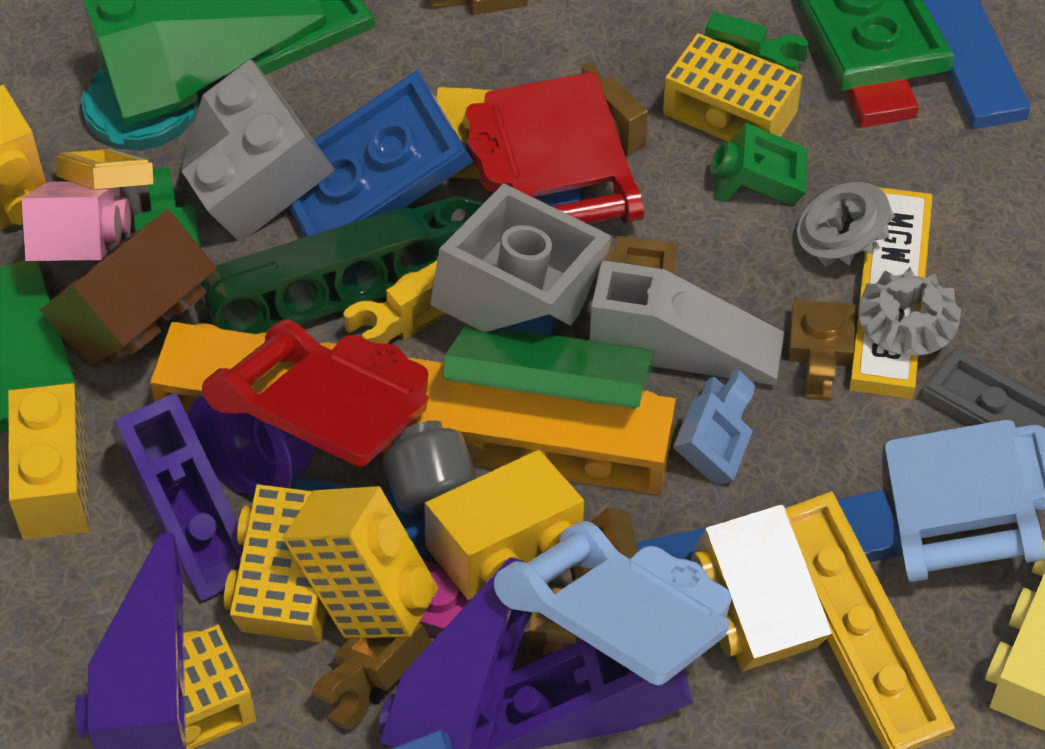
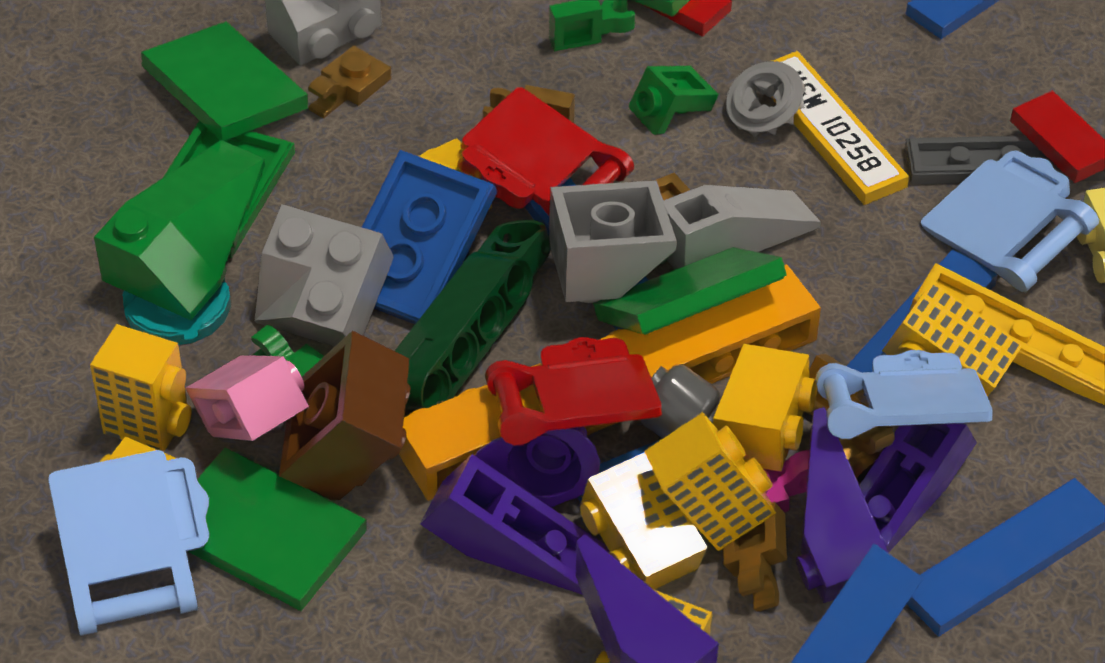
camera: 40 degrees left, 5 degrees down
(48, 461) = (399, 569): yellow brick -> none
(103, 168) = (229, 349): yellow tile -> none
(403, 313) = (537, 313): yellow plate -> none
(713, 432) = (817, 273): medium blue plate -> none
(726, 87) = (605, 55): yellow brick -> none
(822, 338) = (821, 180): pearl gold plate -> none
(920, 331) = (850, 141): light grey gear -> none

